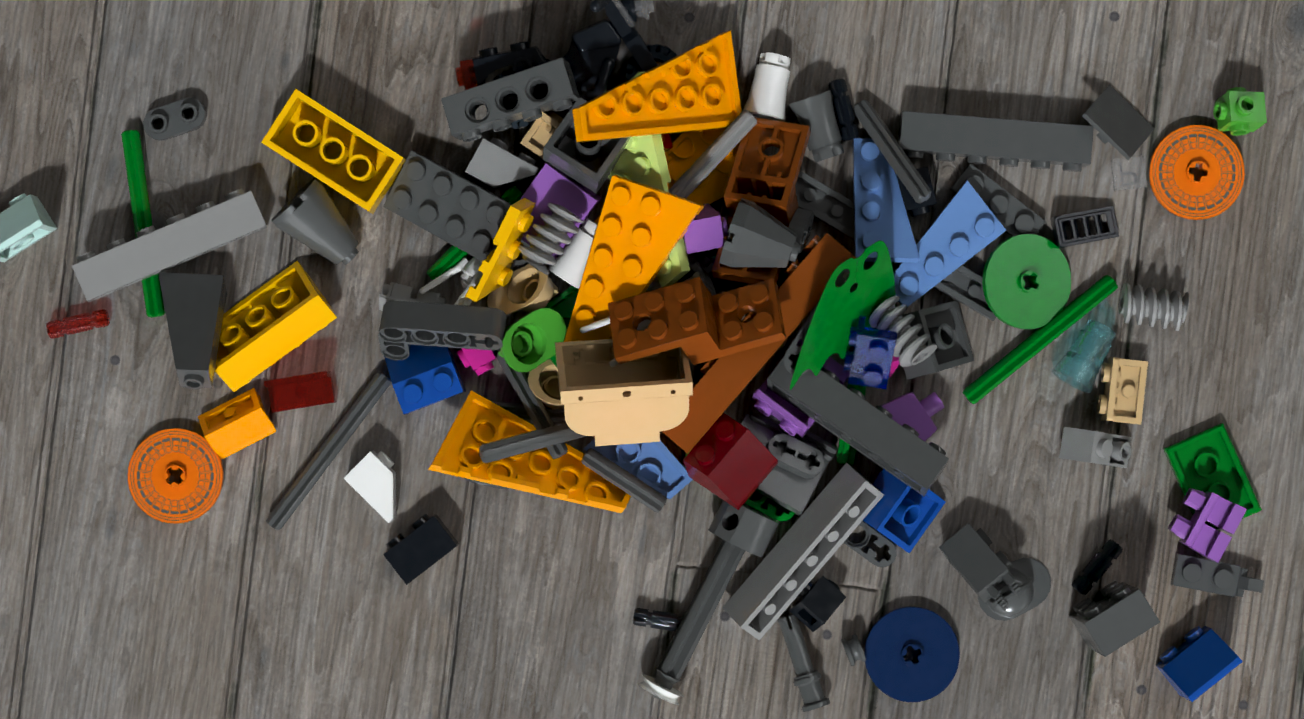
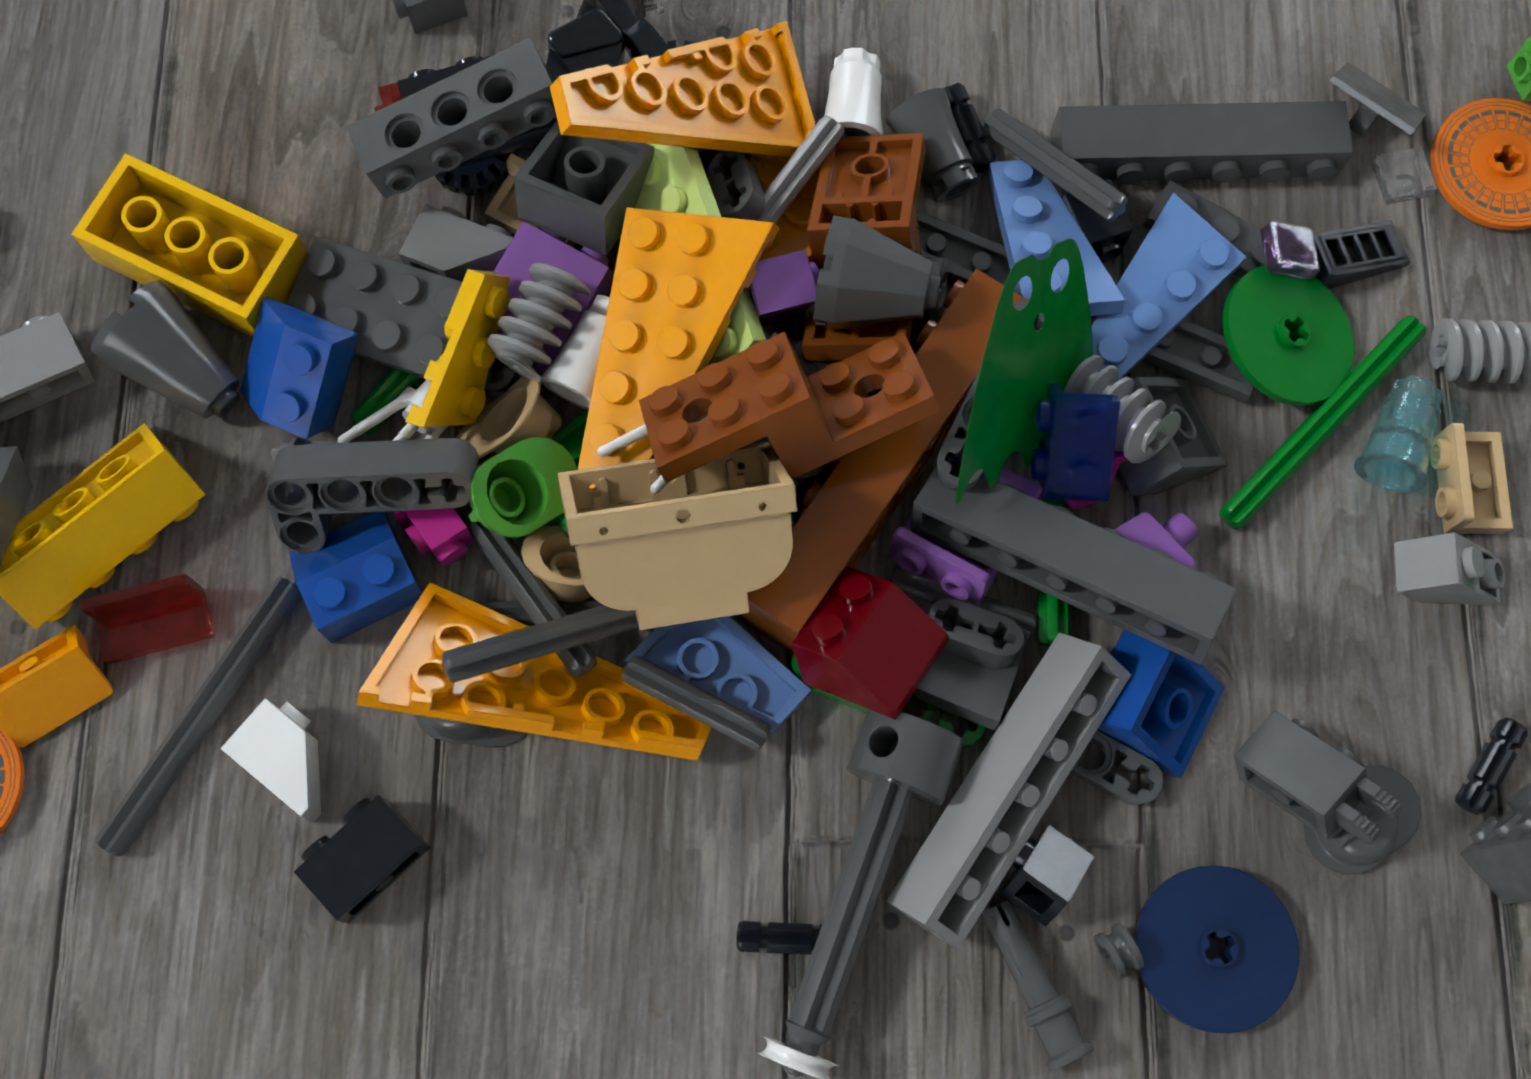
camera: 10 degrees left, 15 degrees down
(395, 242) = (297, 369): none -> blue slope
(679, 152) = (741, 187): none -> dark grey beam
(1036, 226) = (1289, 250): none -> clear purple tile

